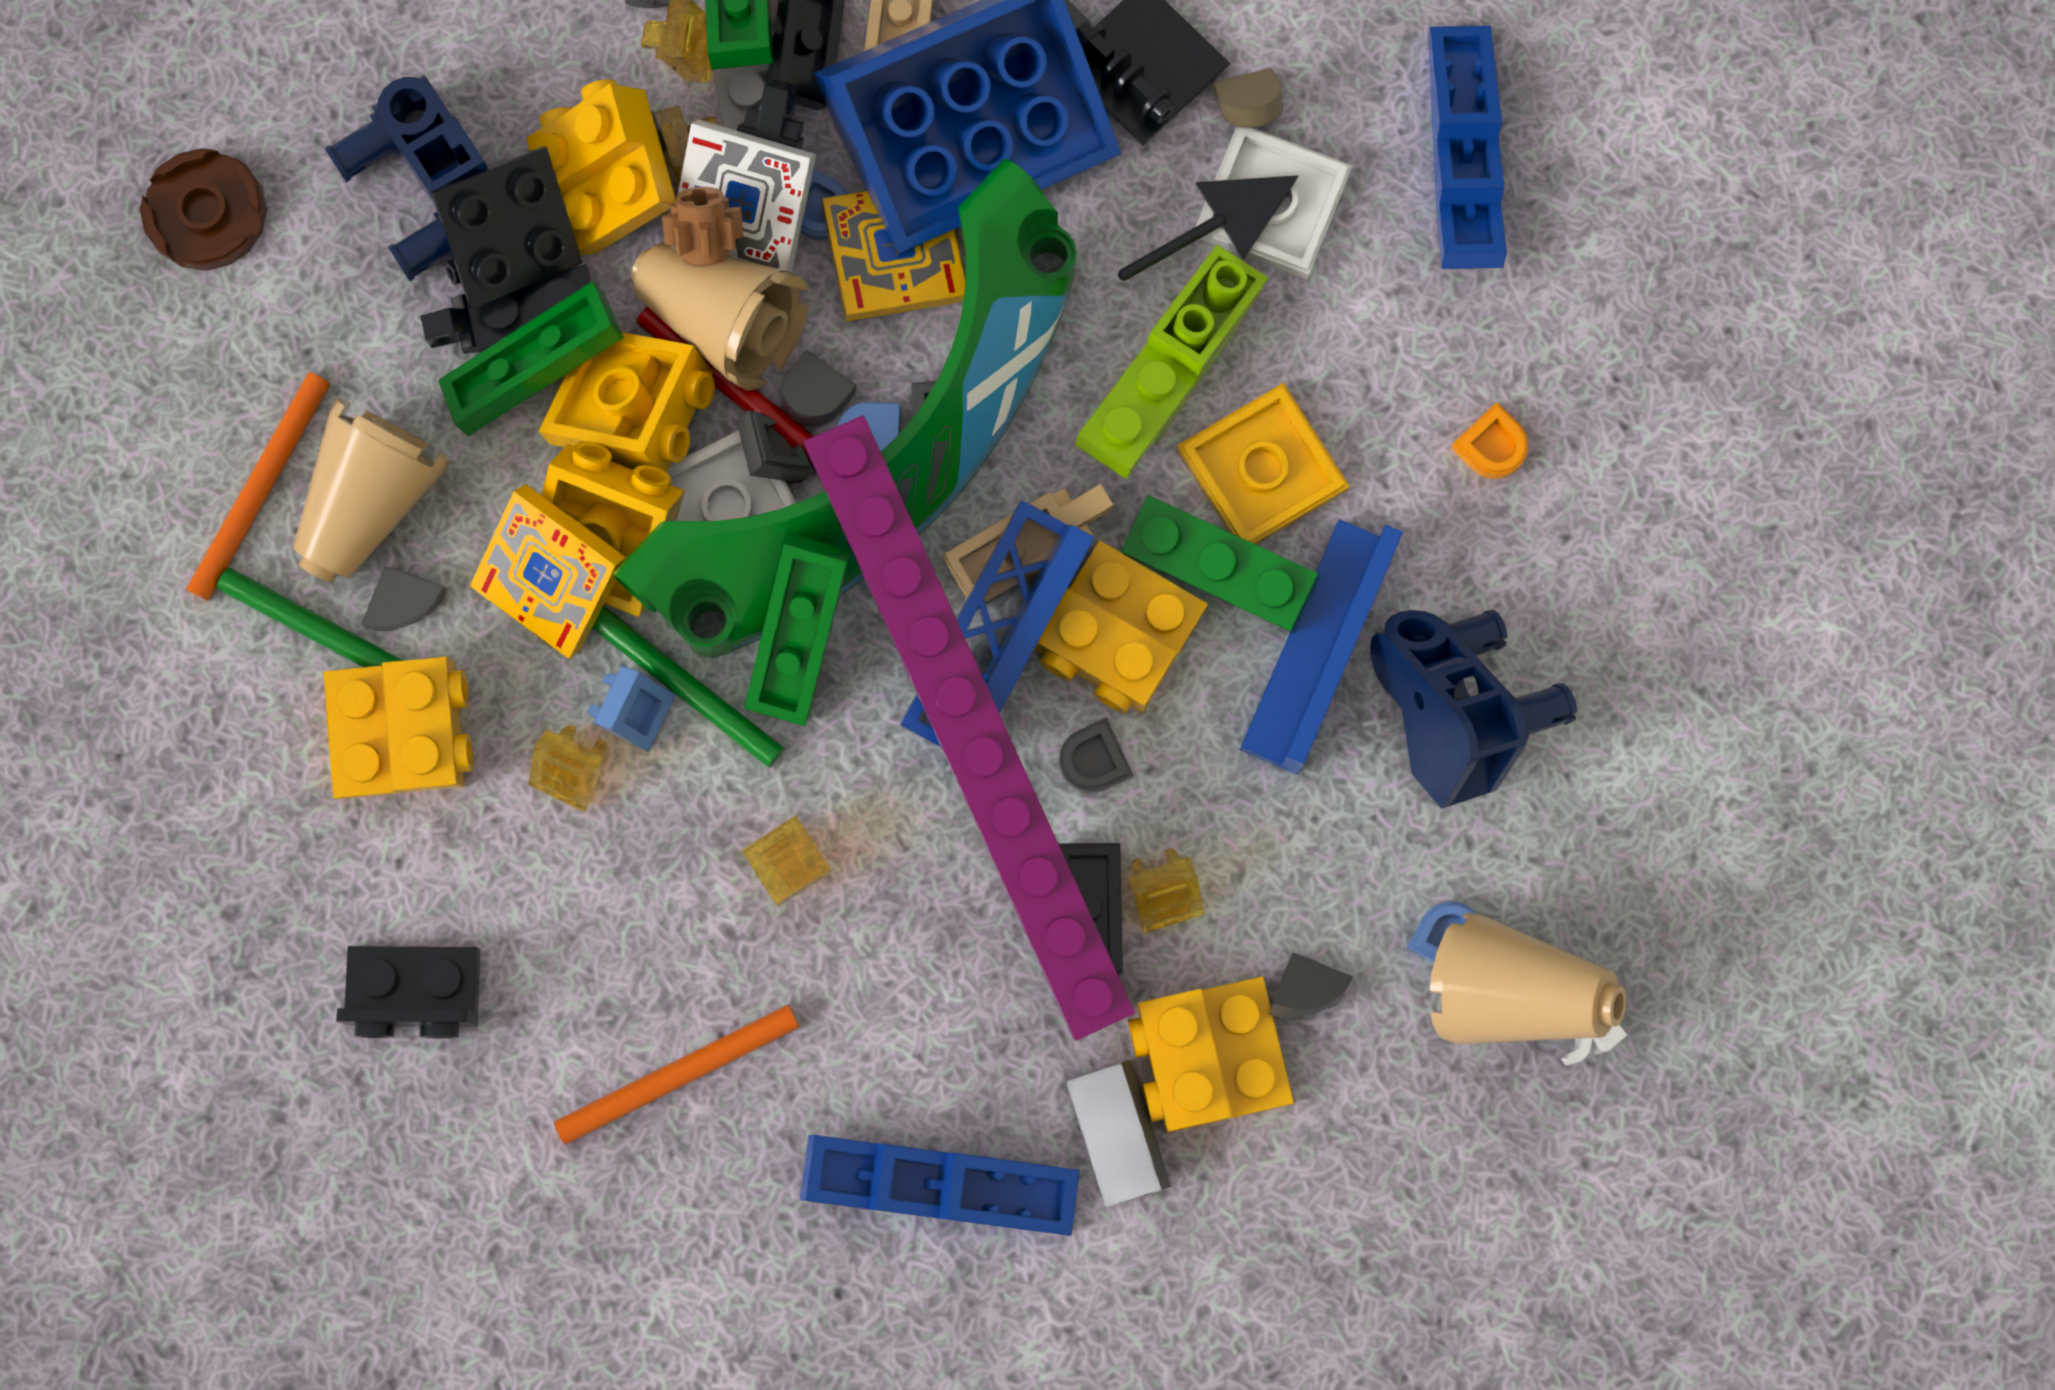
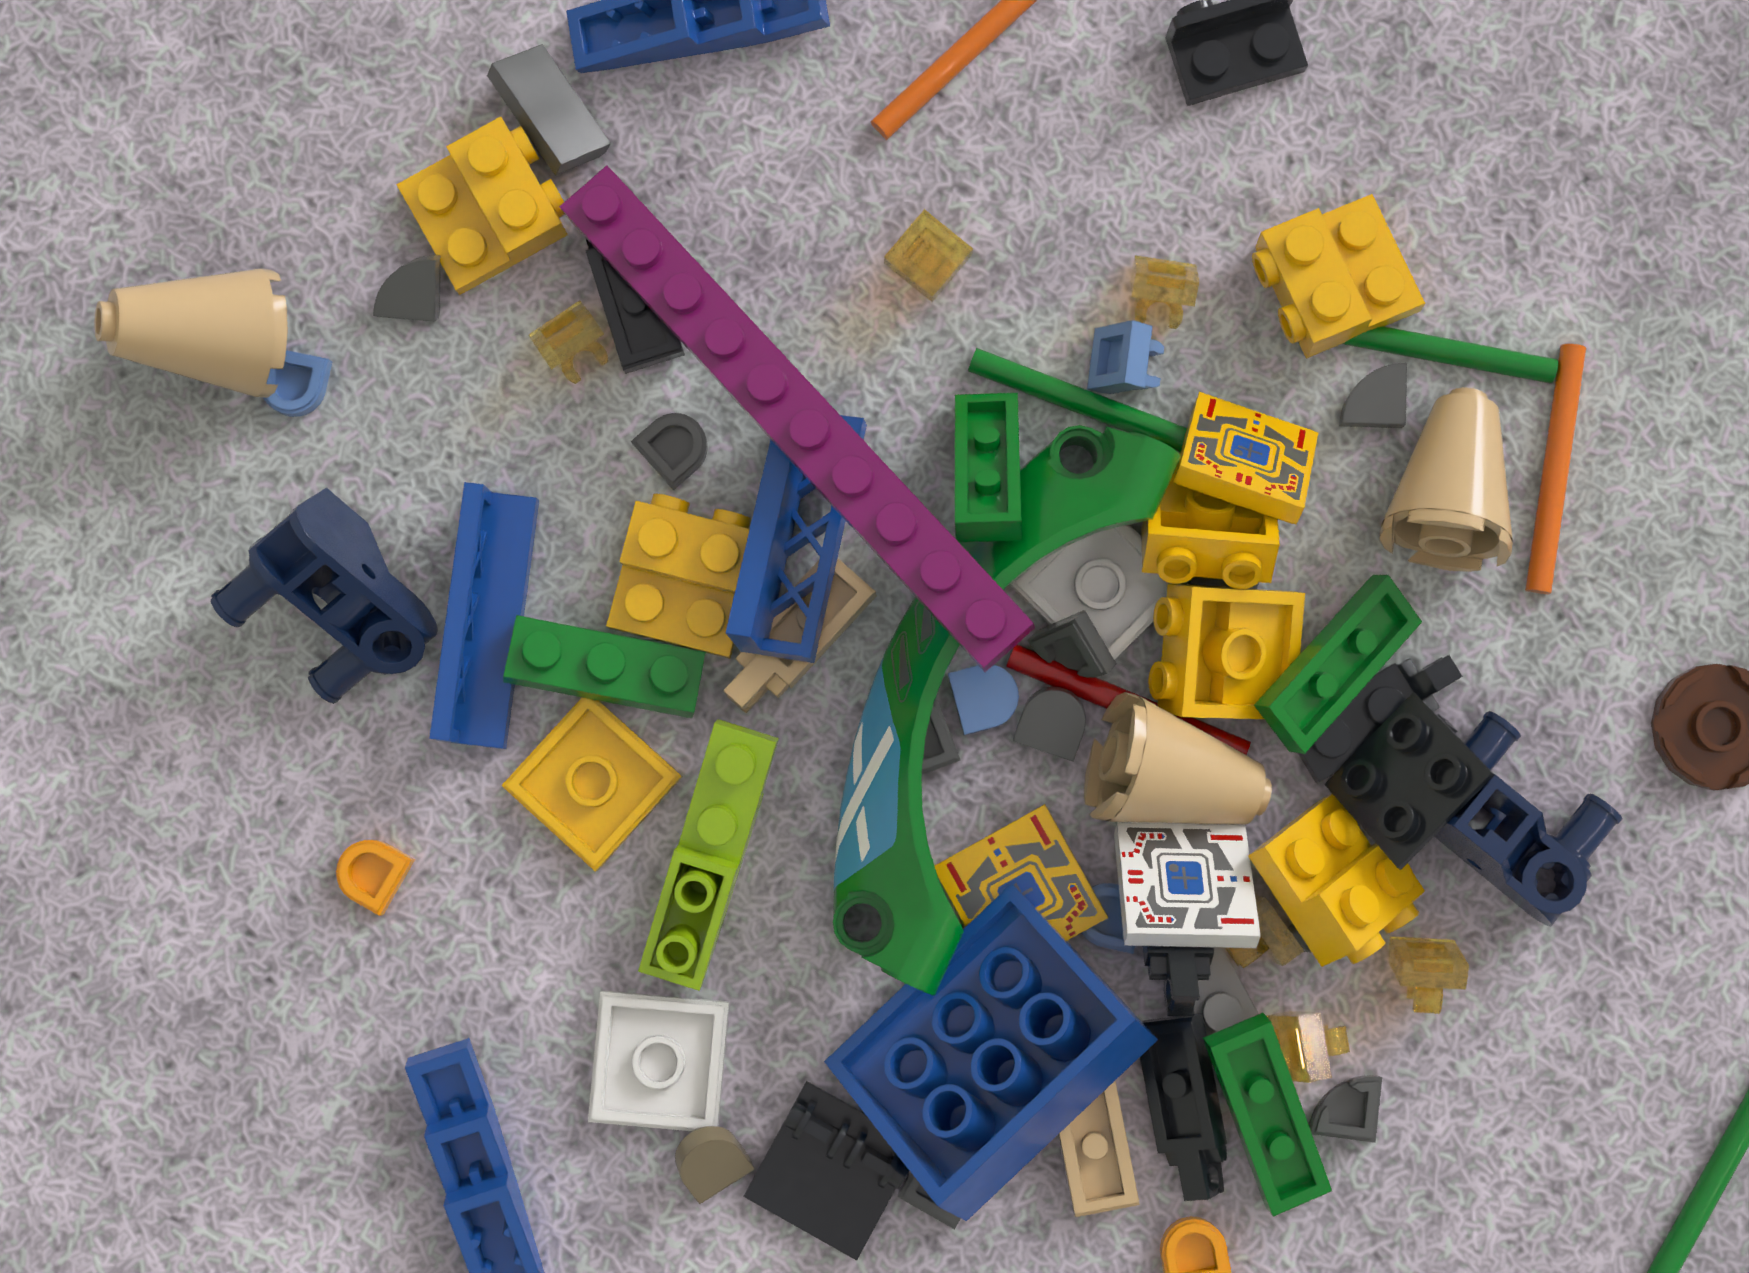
camera: 165 degrees right, 5 degrees up
(547, 72) = (1426, 969): none -> clear yellow tile
(702, 226) = (1213, 834): medium nougat gear -> none
(1239, 207) = (686, 1038): black piece -> none

